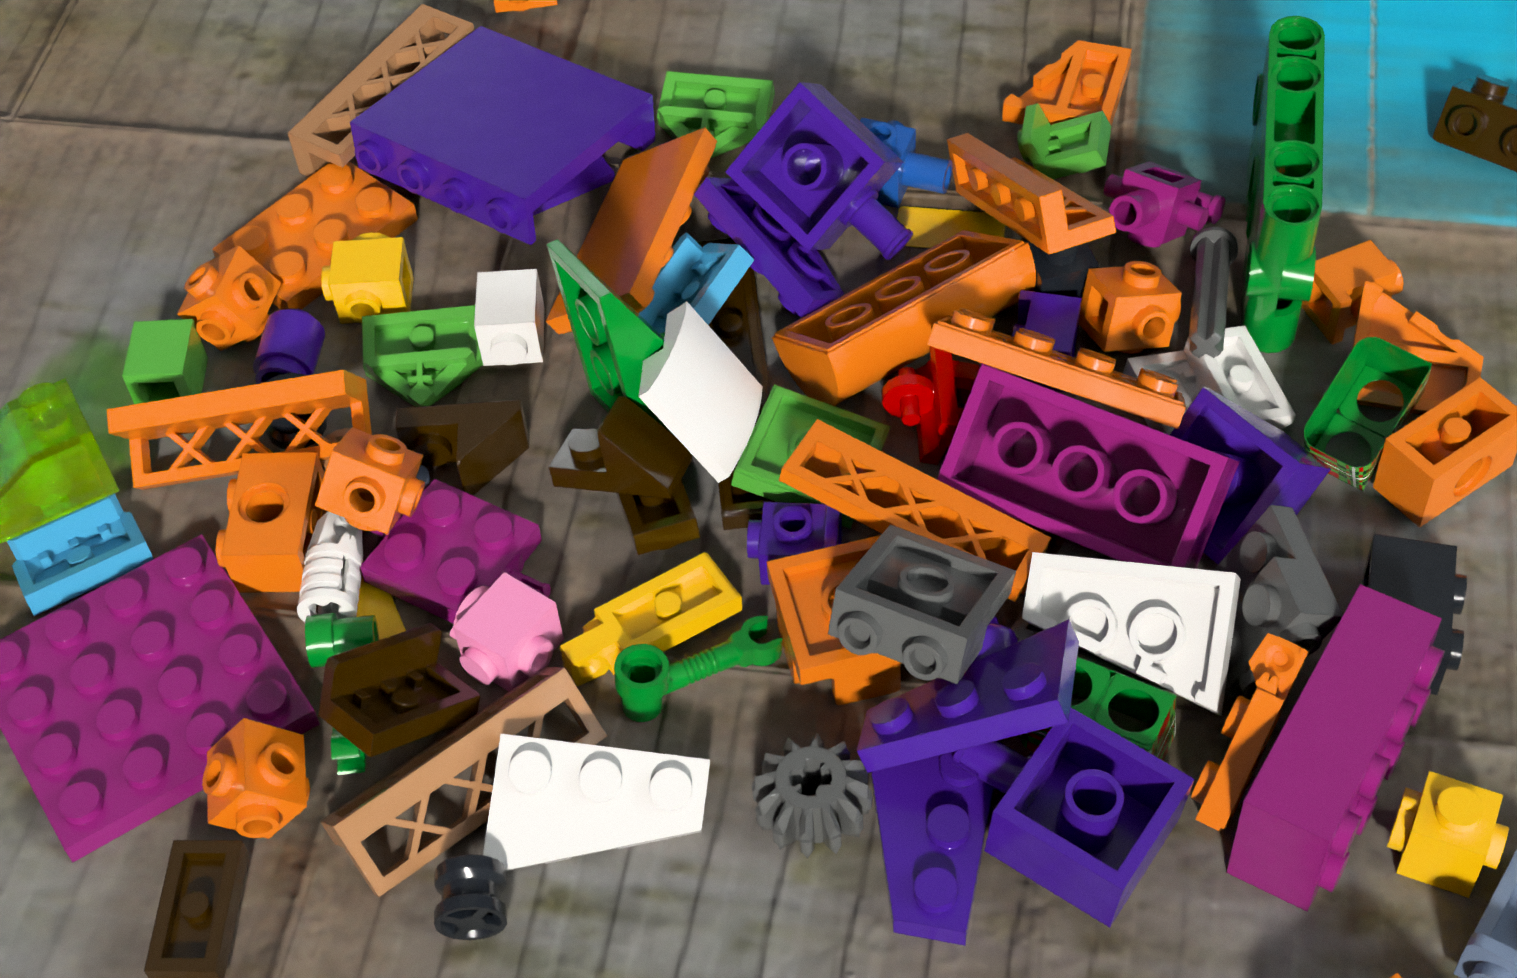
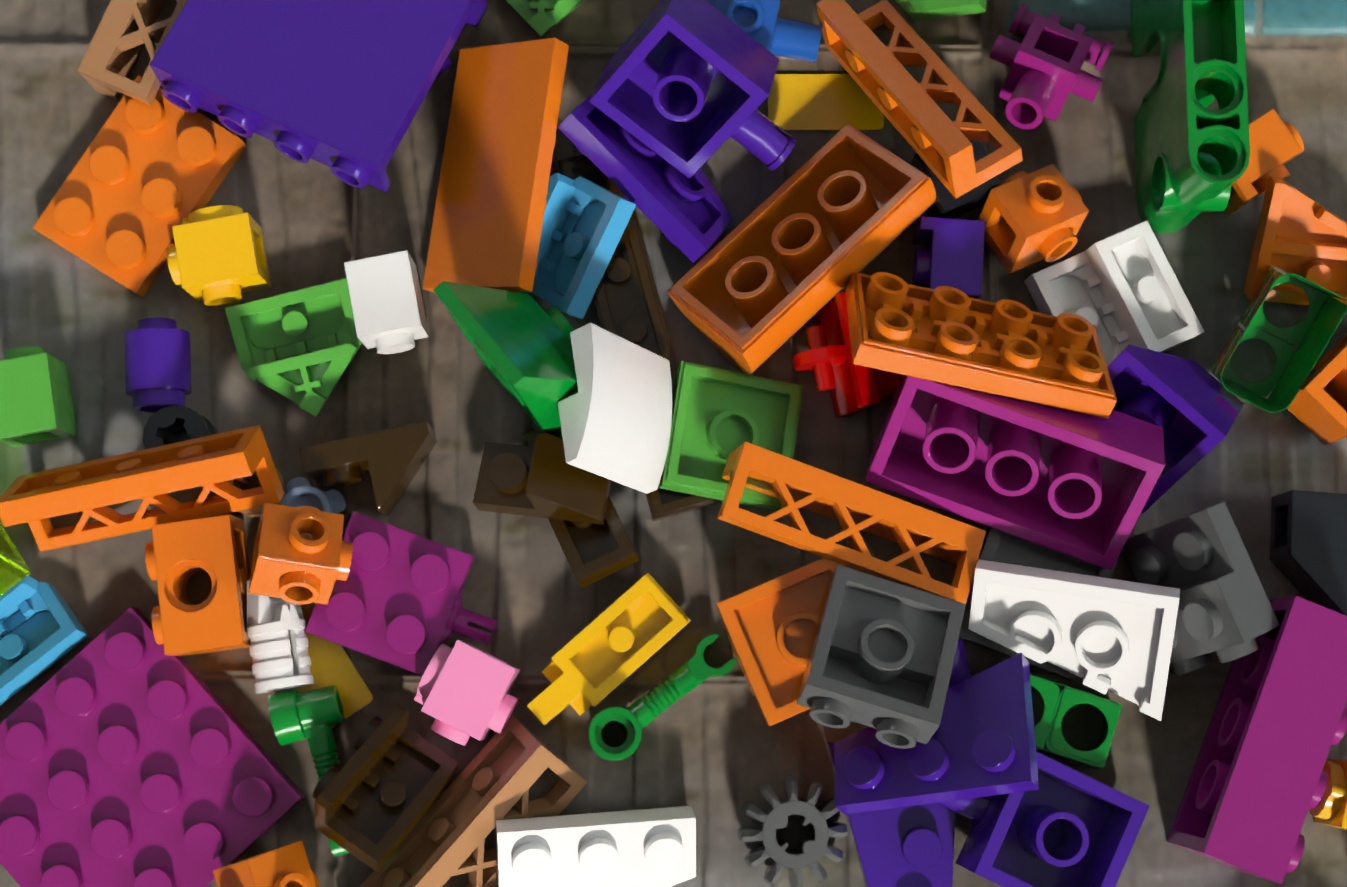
camera: 15 degrees left, 30 degrees up
(229, 298) = (75, 311): orange brick -> none
(791, 530) = (756, 560): dark purple brick -> none
(1213, 253) = (1111, 186): dark grey axle -> none
(1250, 726) = (1192, 742): orange hinge -> none

